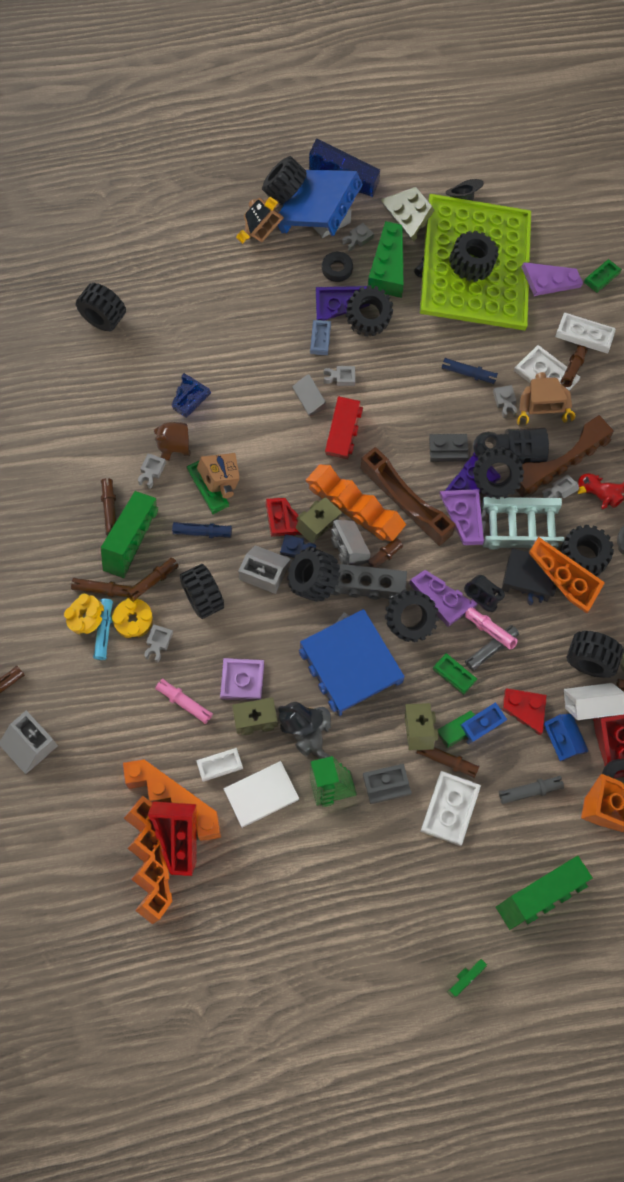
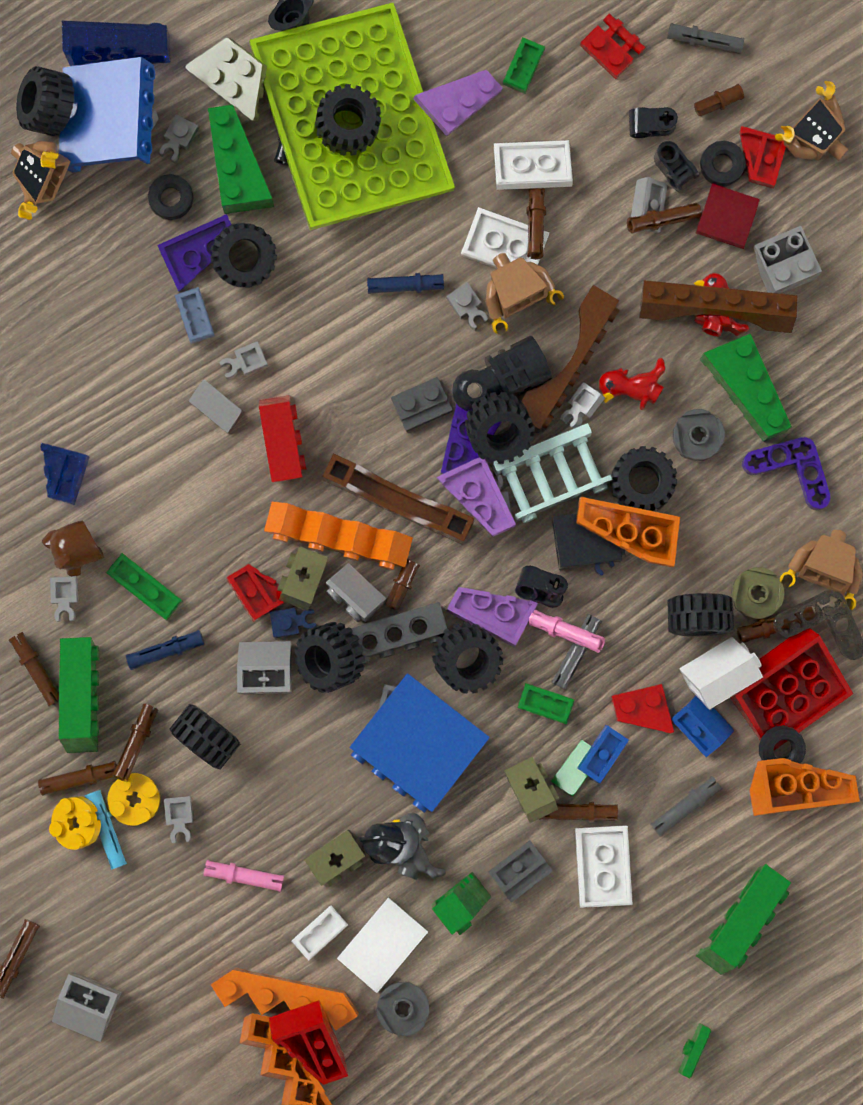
camera: 25 degrees left, 15 degrees up
(220, 473) = (154, 568): medium nougat torso -> none
(242, 679) = (299, 818): lavender tile -> none
(263, 837) = (417, 1011): none -> dark grey plate

